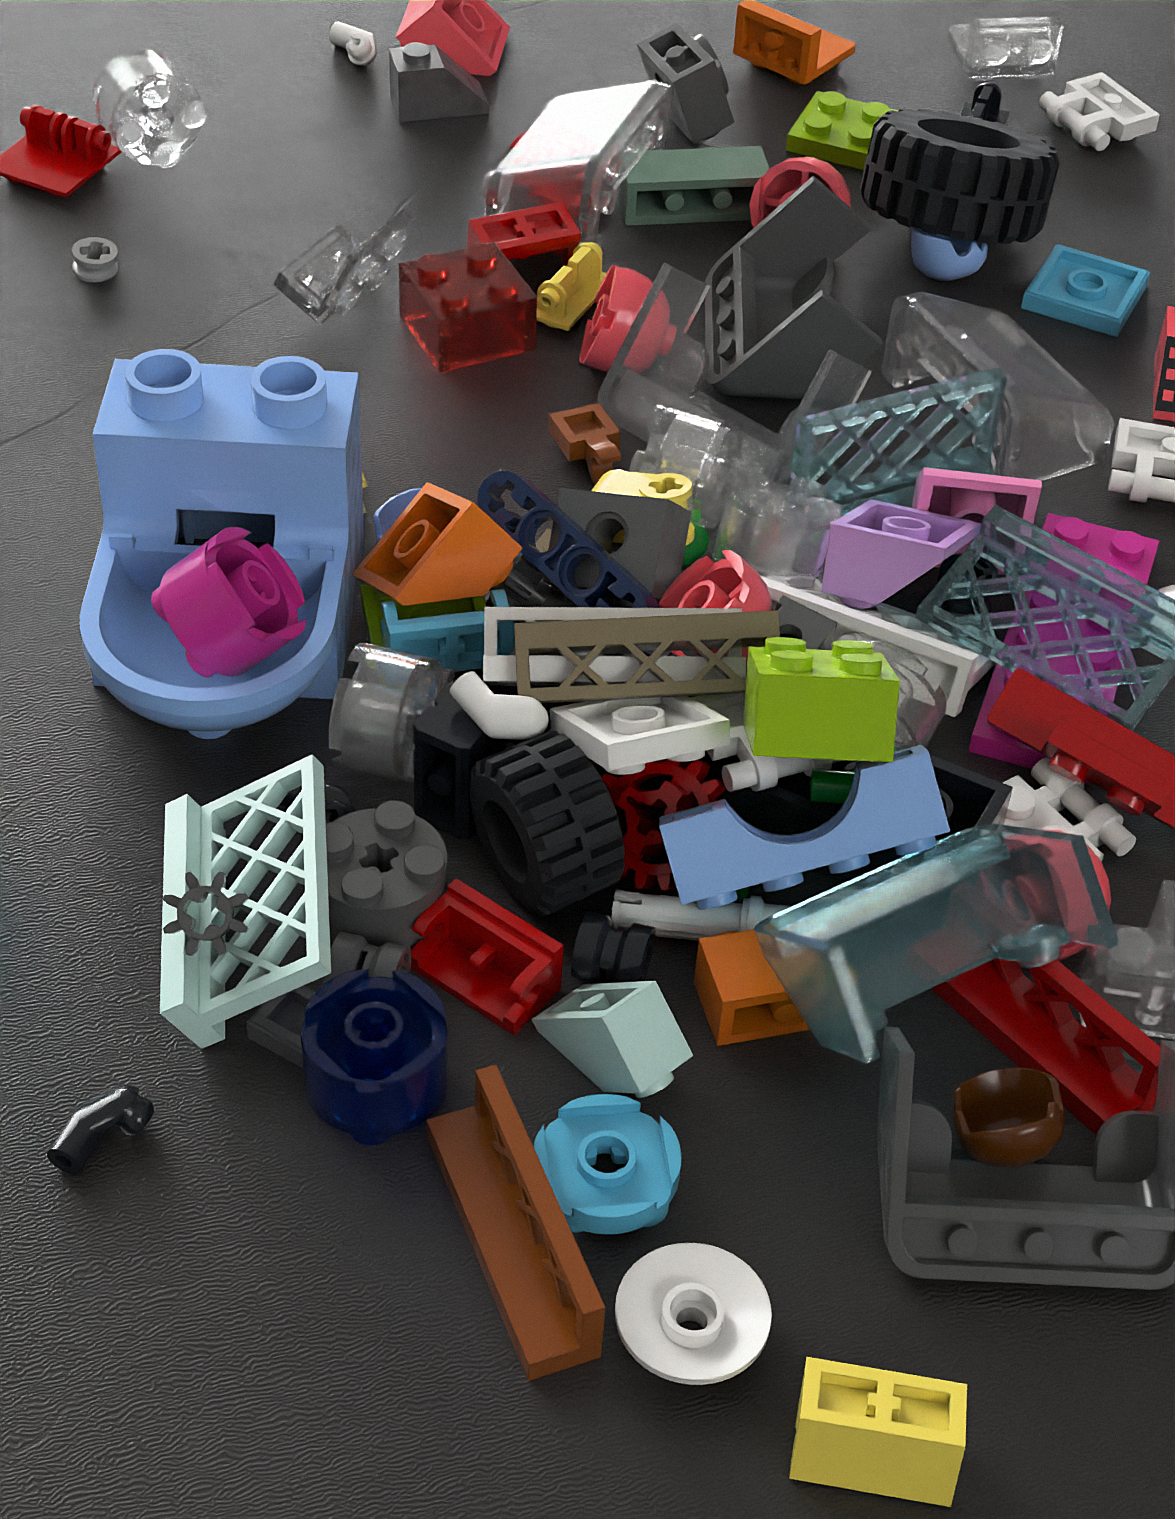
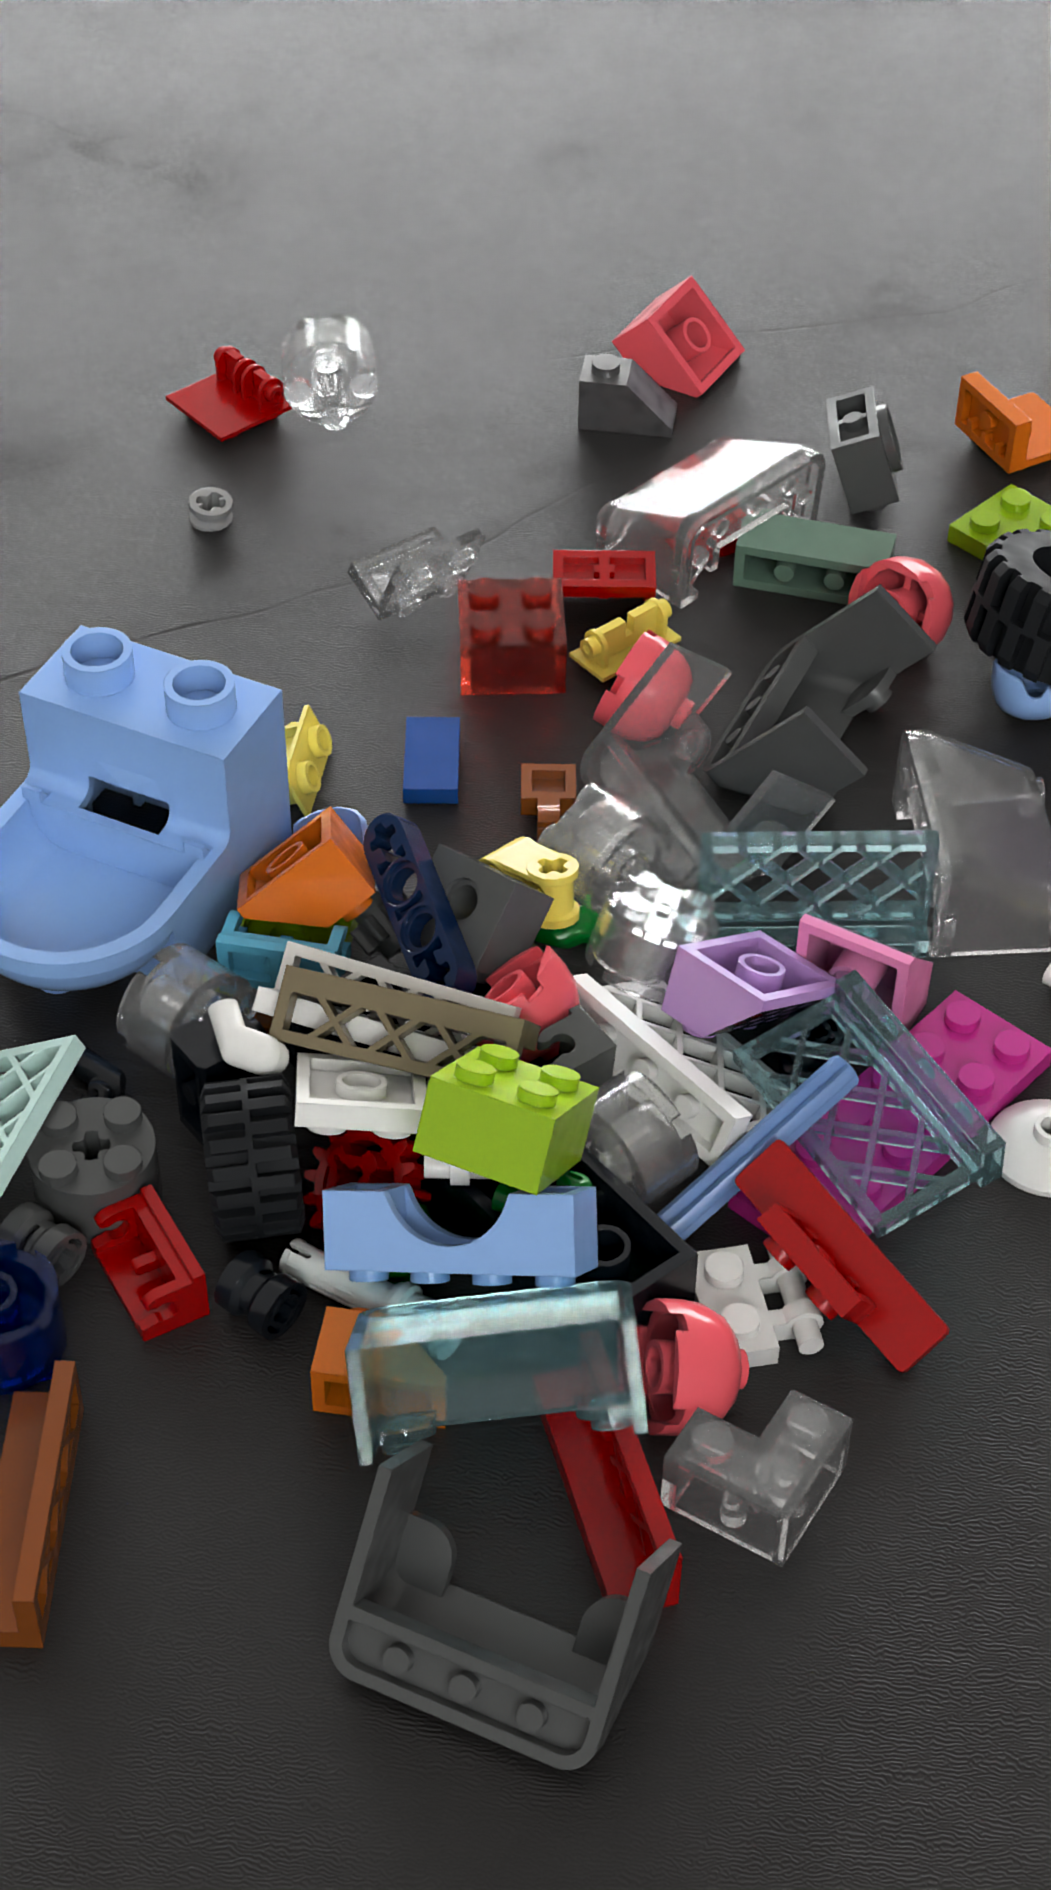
camera: 25 degrees right, 0 degrees up
(230, 604) = (81, 877): dark pink brick -> none
(358, 43) = (583, 337): white arm -> none
(455, 433) = (431, 760): none -> blue tile
(616, 1200) = (145, 1517): medium azure plate -> none
(617, 1035) = (215, 1374): light aqua slope -> none
(697, 1286) = (122, 1611): white dish -> none
(879, 1431) = (216, 1796): light yellow hinge -> none
(1004, 656) = (783, 1123): none -> medium blue axle
(1008, 1116) = (512, 1562): reddish brown hair -> none

